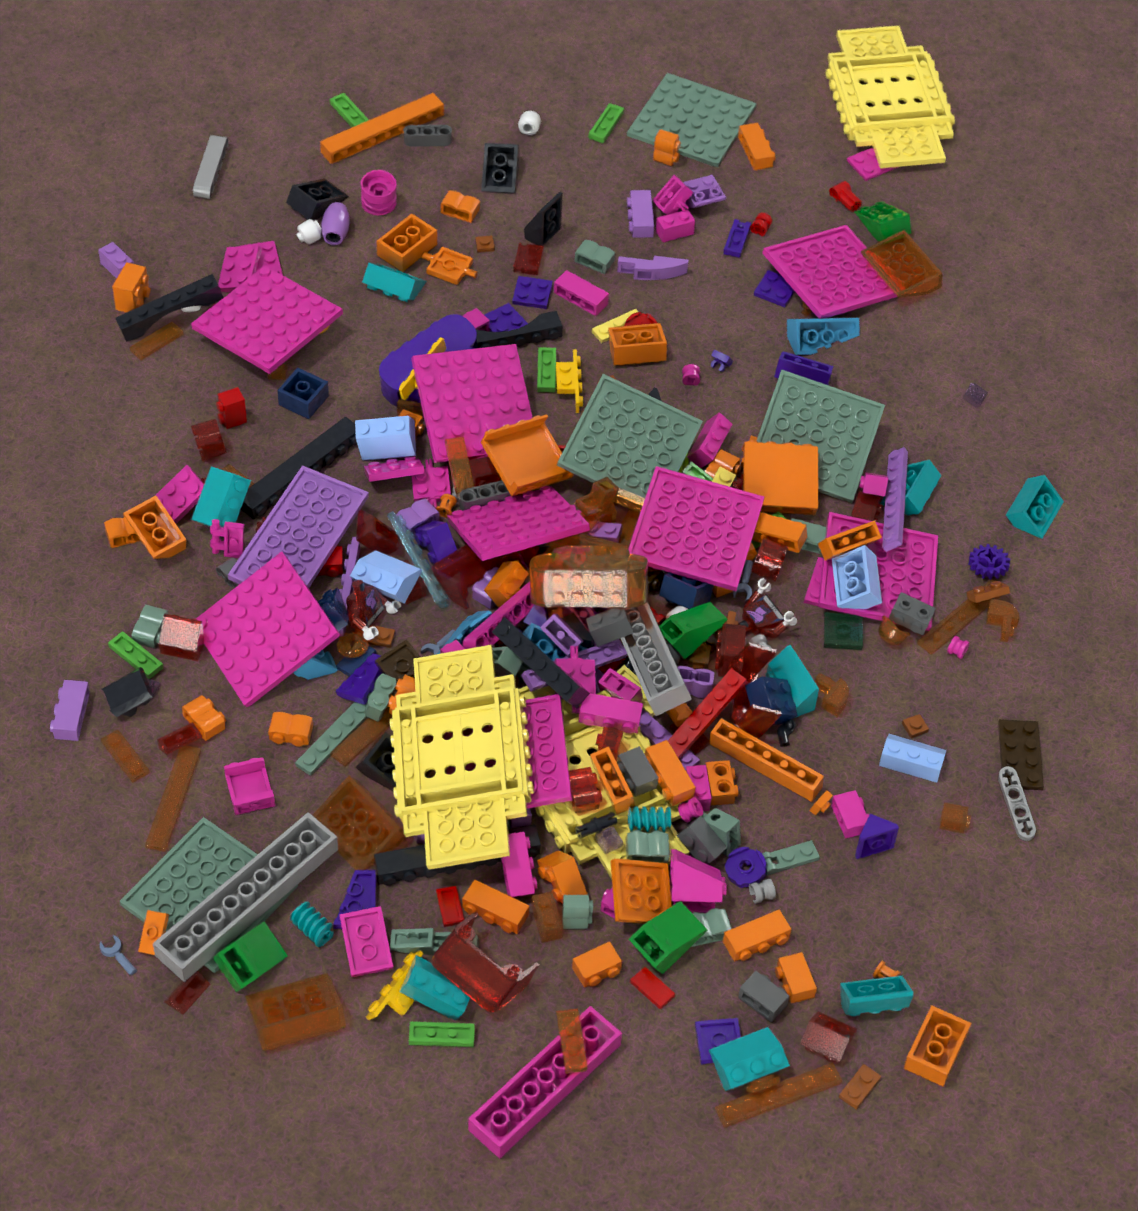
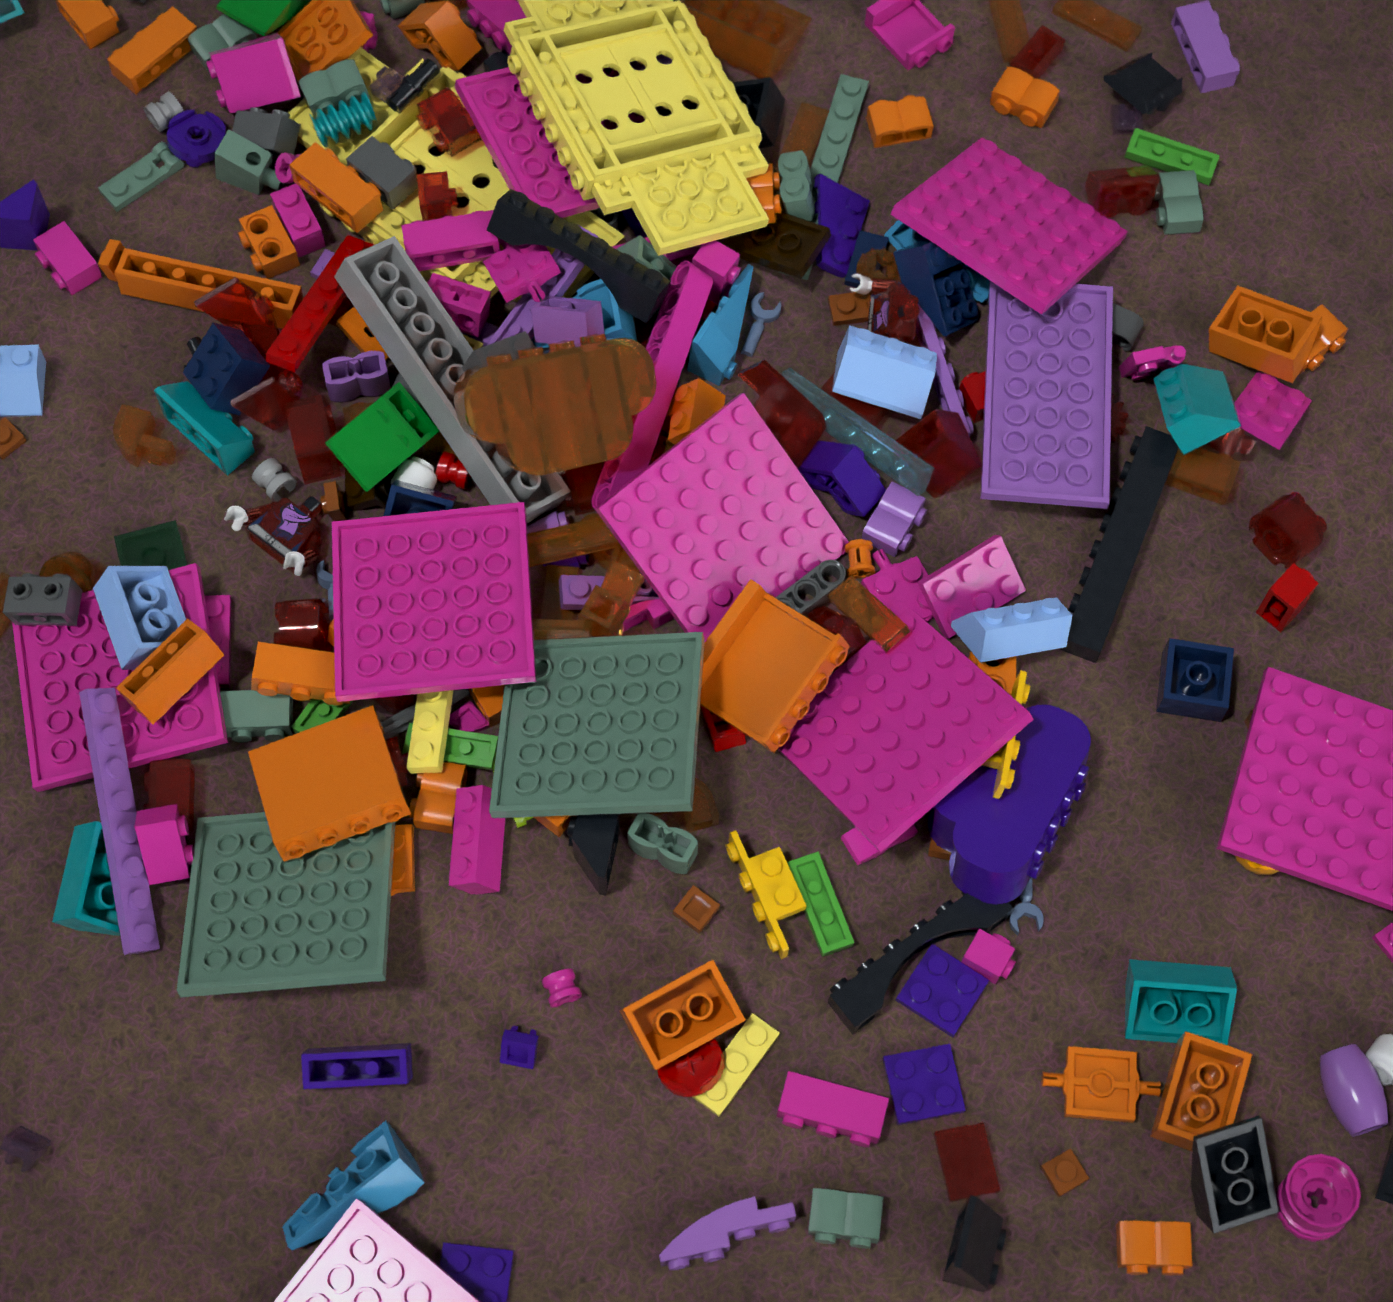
camera: 160 degrees right, 15 degrees up
(418, 205) = (1232, 1175): none -> black slope
(612, 780) = (409, 135): orange brick -> none

